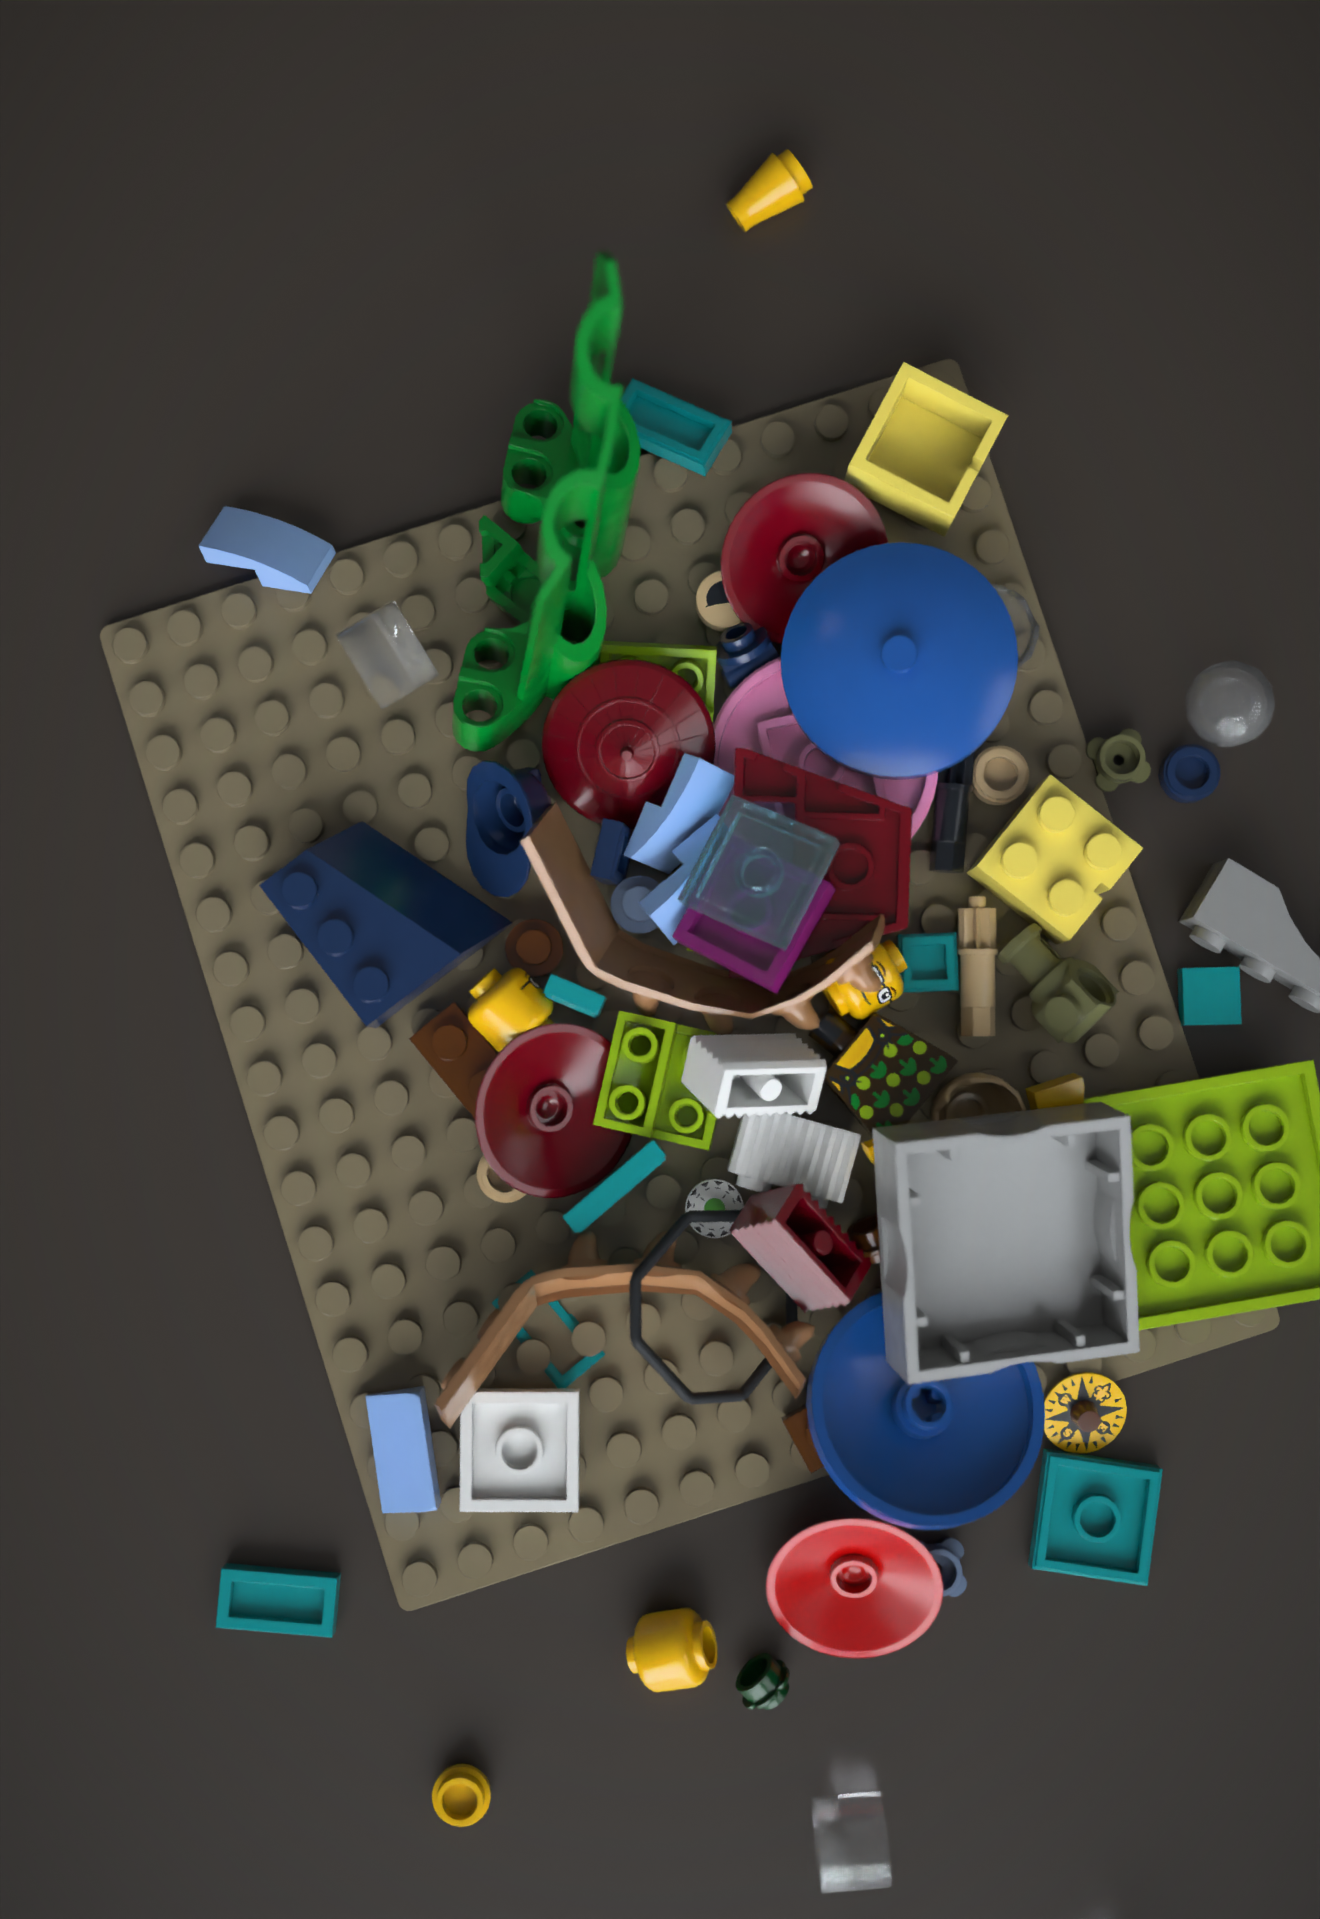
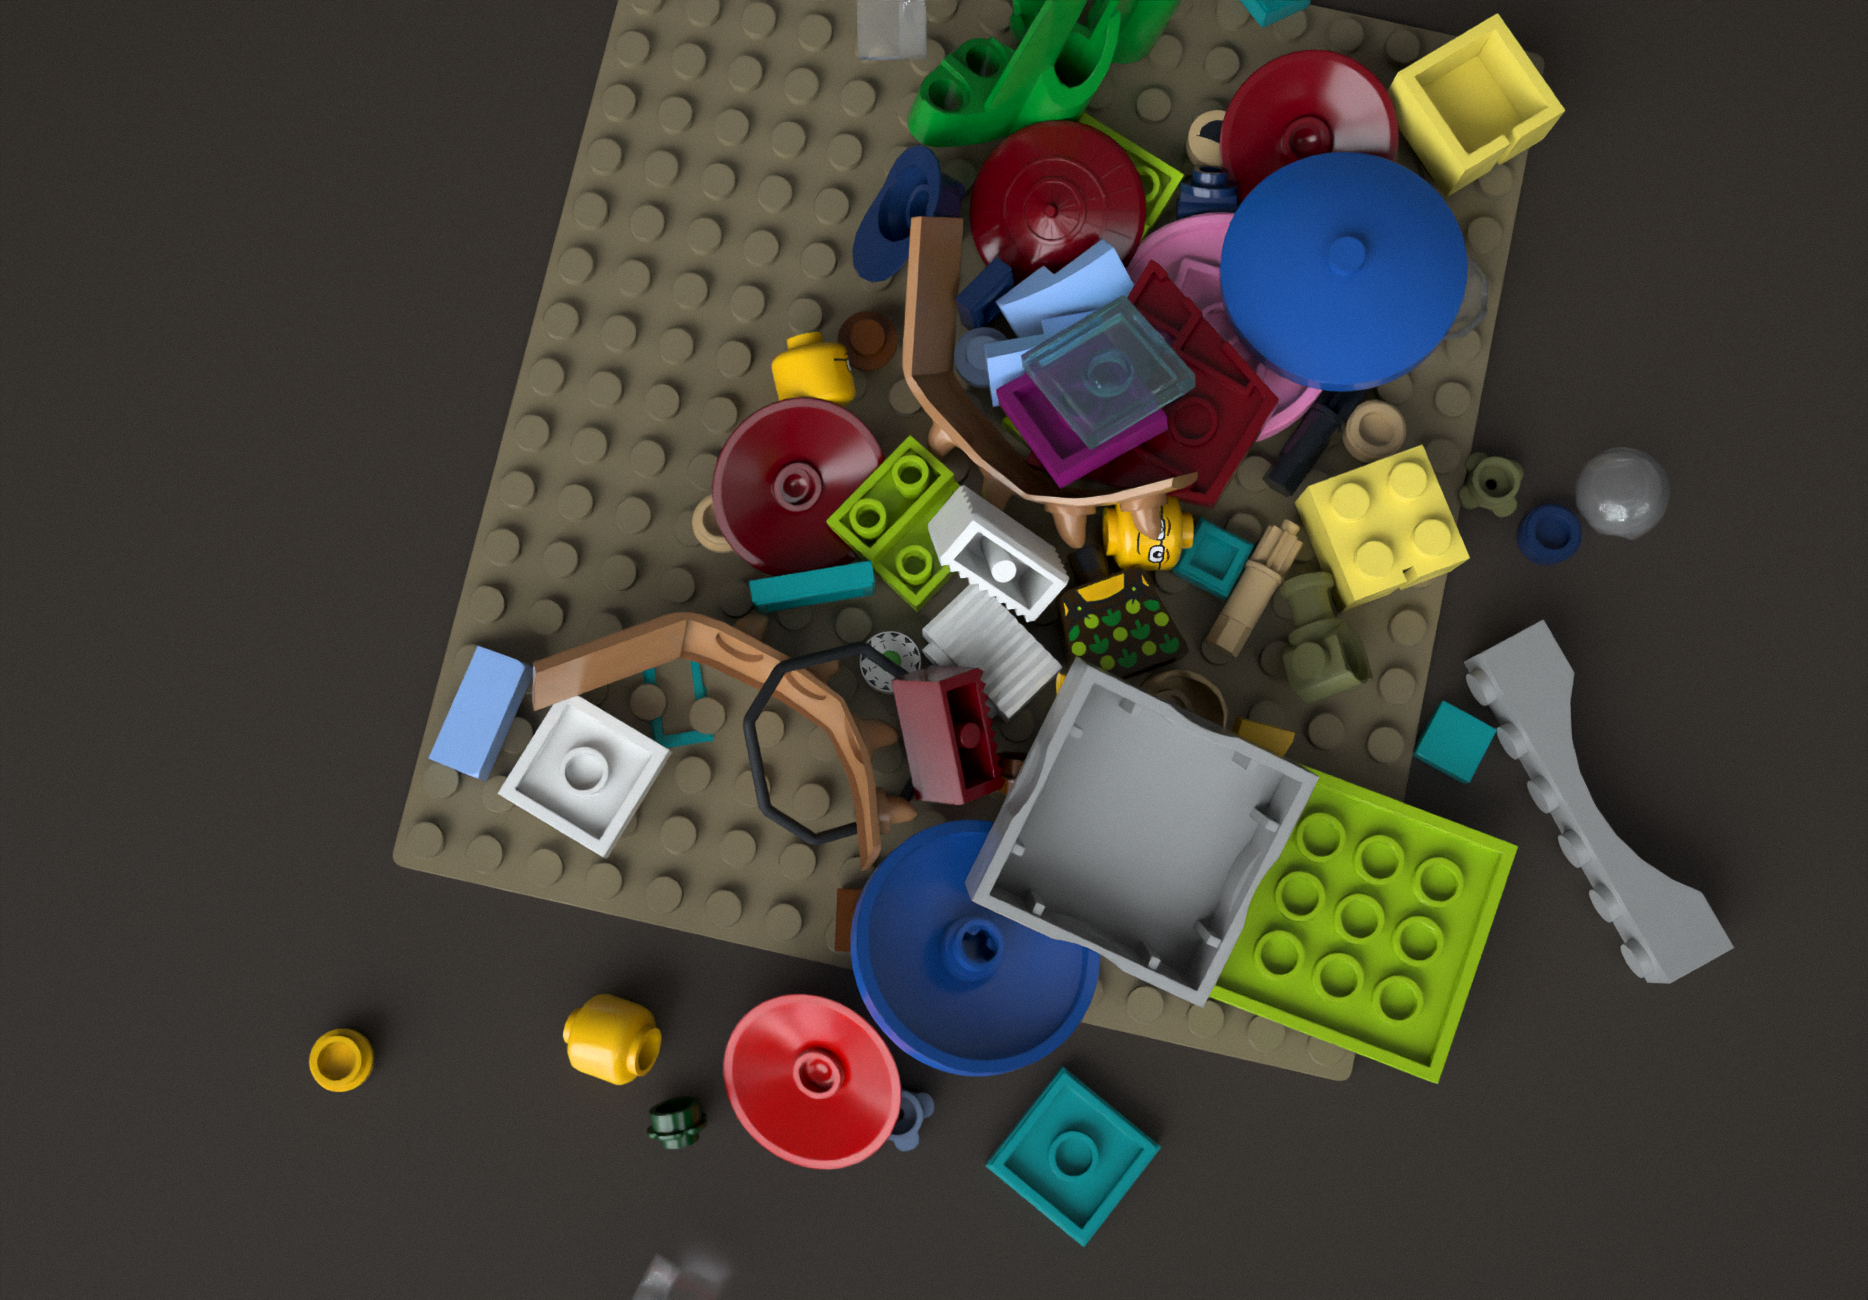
camera: 25 degrees right, 5 degrees down
(278, 1600) = (288, 785): teal tile -> none
(379, 919) = (745, 237): dark blue wedge -> none
(456, 1053) = (741, 385): reddish brown plate -> none
(574, 996) = (878, 401): teal tile -> none
(1084, 1412) = (1118, 1052): piece -> none

